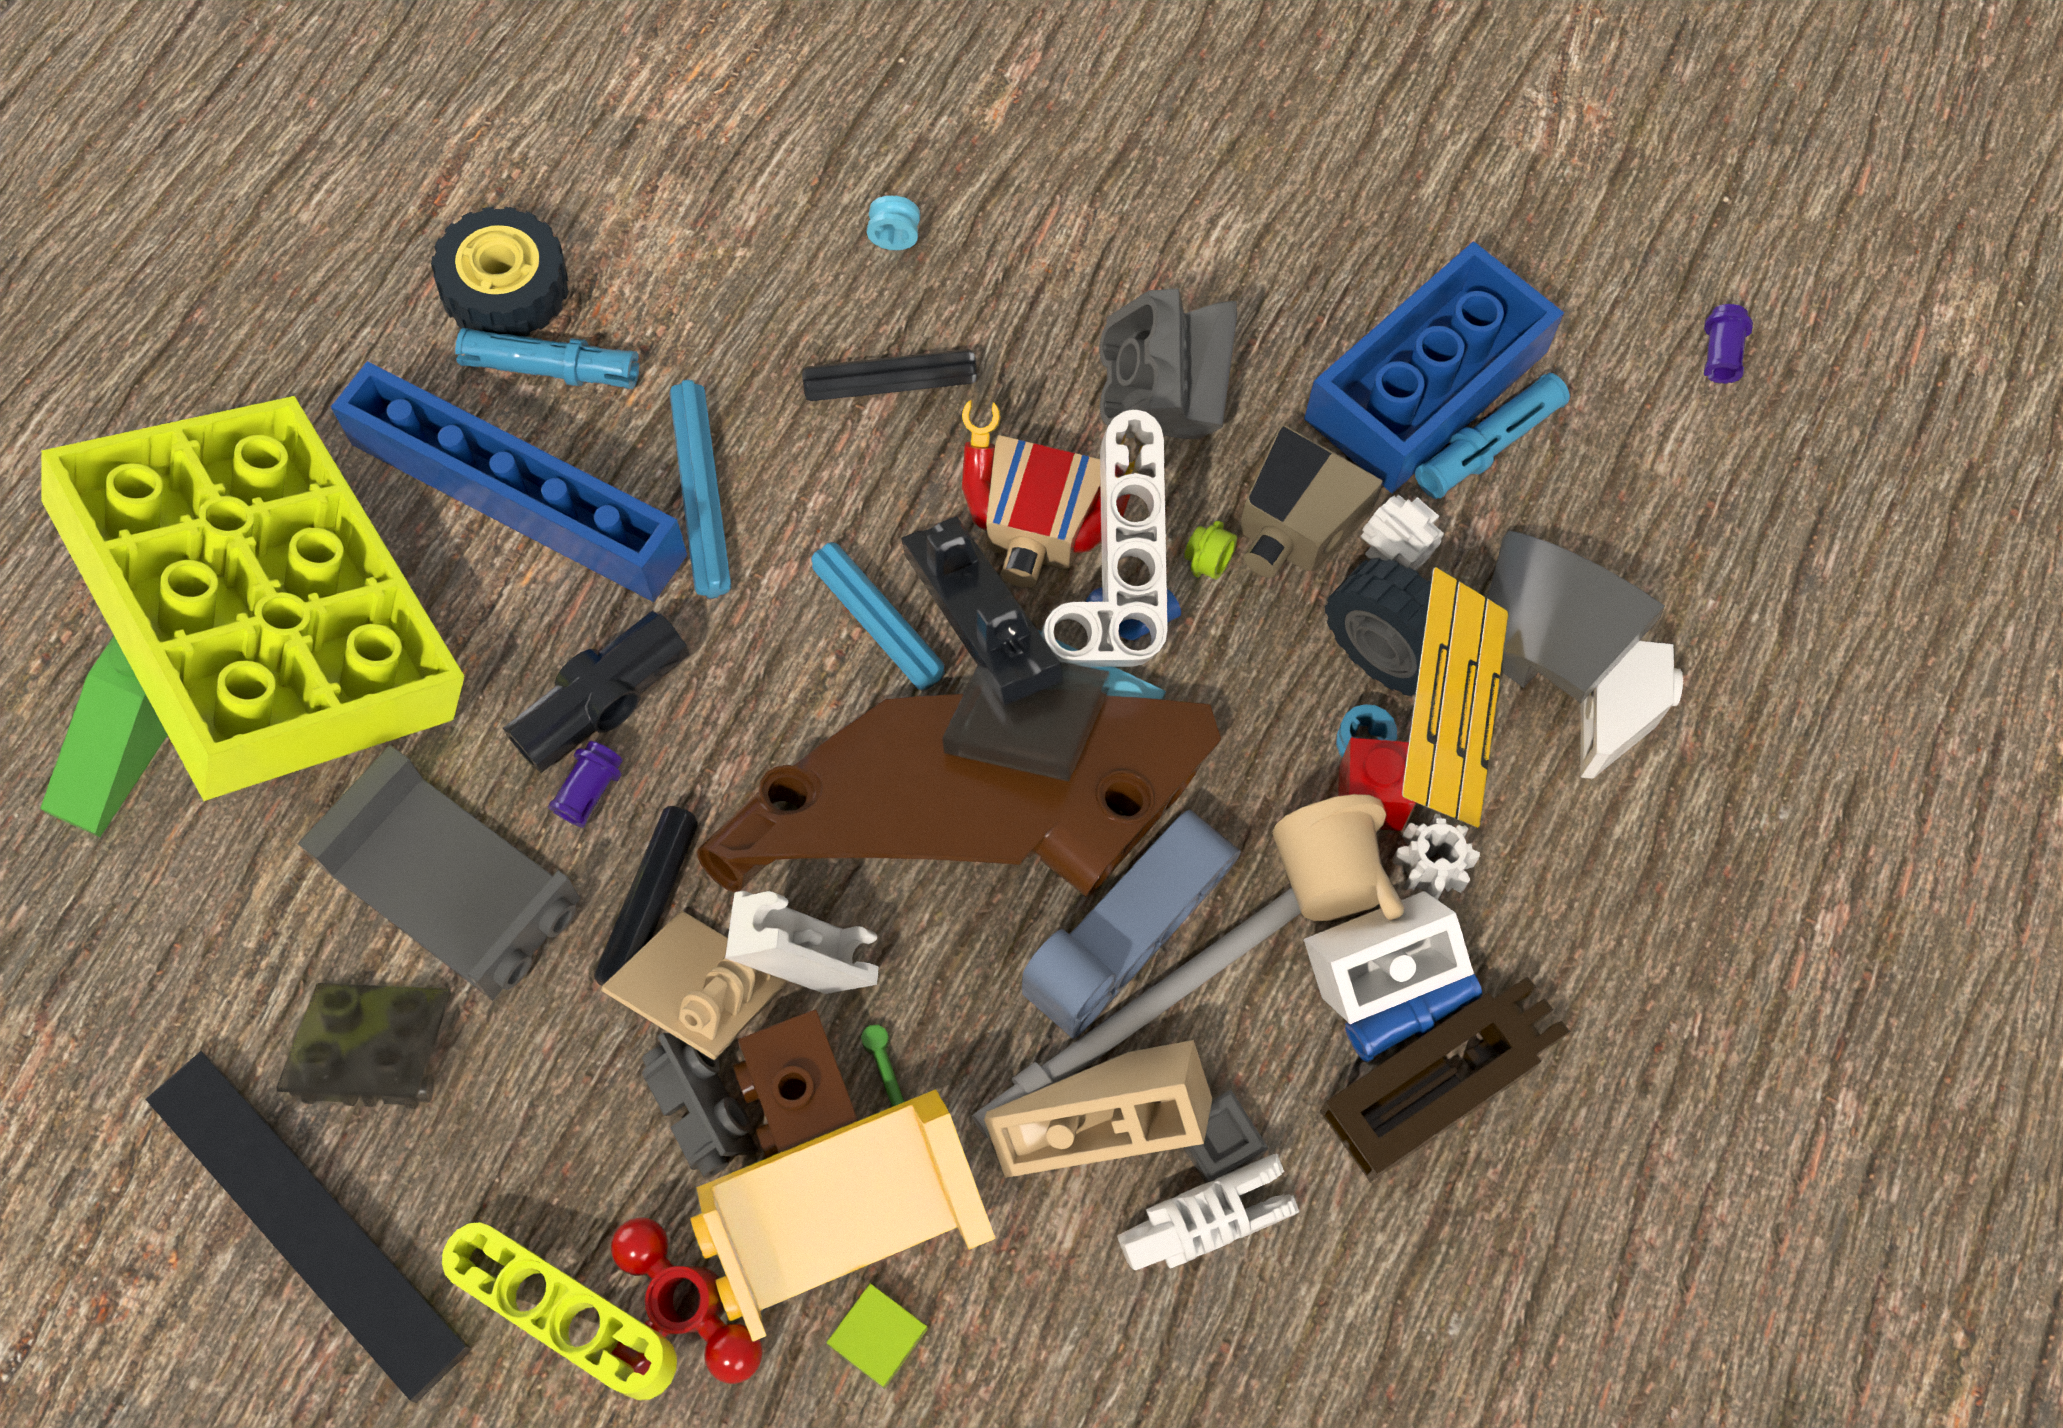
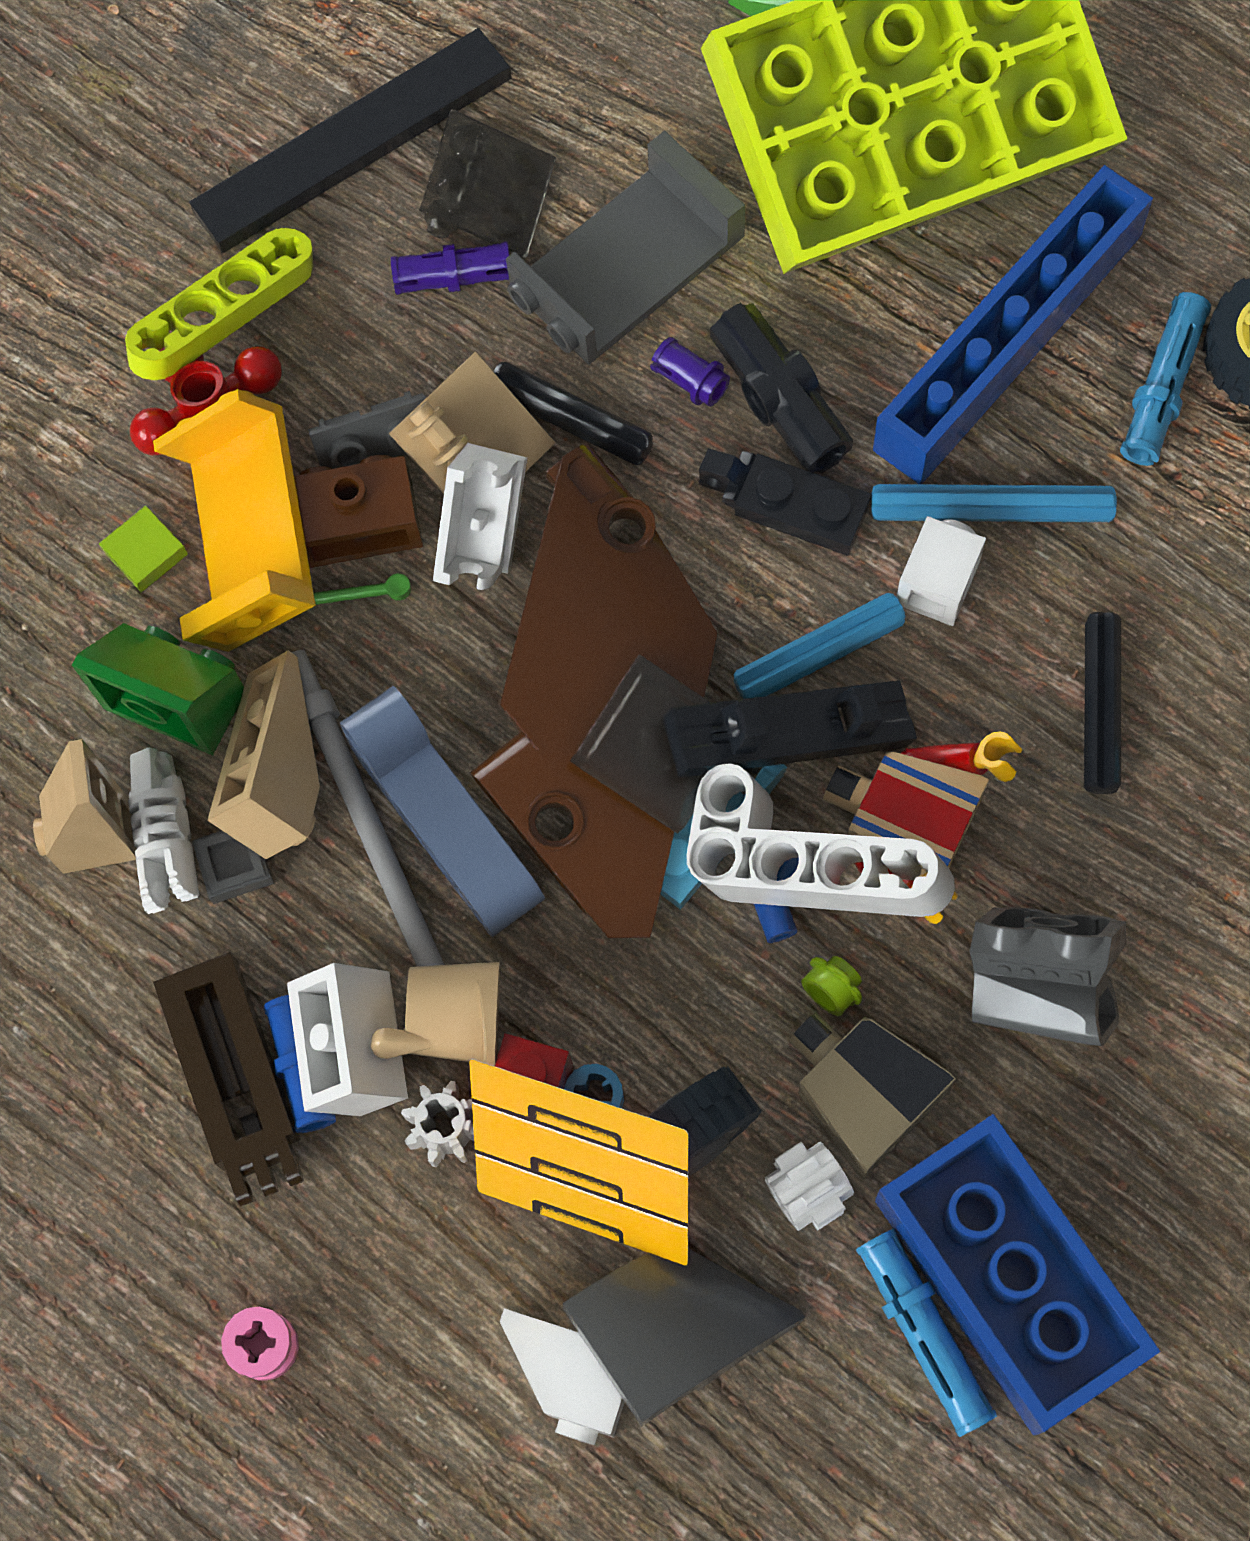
camera: 110 degrees right, 5 degrees up
(478, 1062) = (450, 268): none -> dark purple pin
(718, 670) = (787, 498): none -> black hinge
(781, 515) = (940, 569): none -> white brick
(1047, 1246) = (162, 684): none -> green slope
(1230, 1286) = (83, 814): none -> tan slope
(1675, 992) = (273, 1346): none -> bright pink wheel

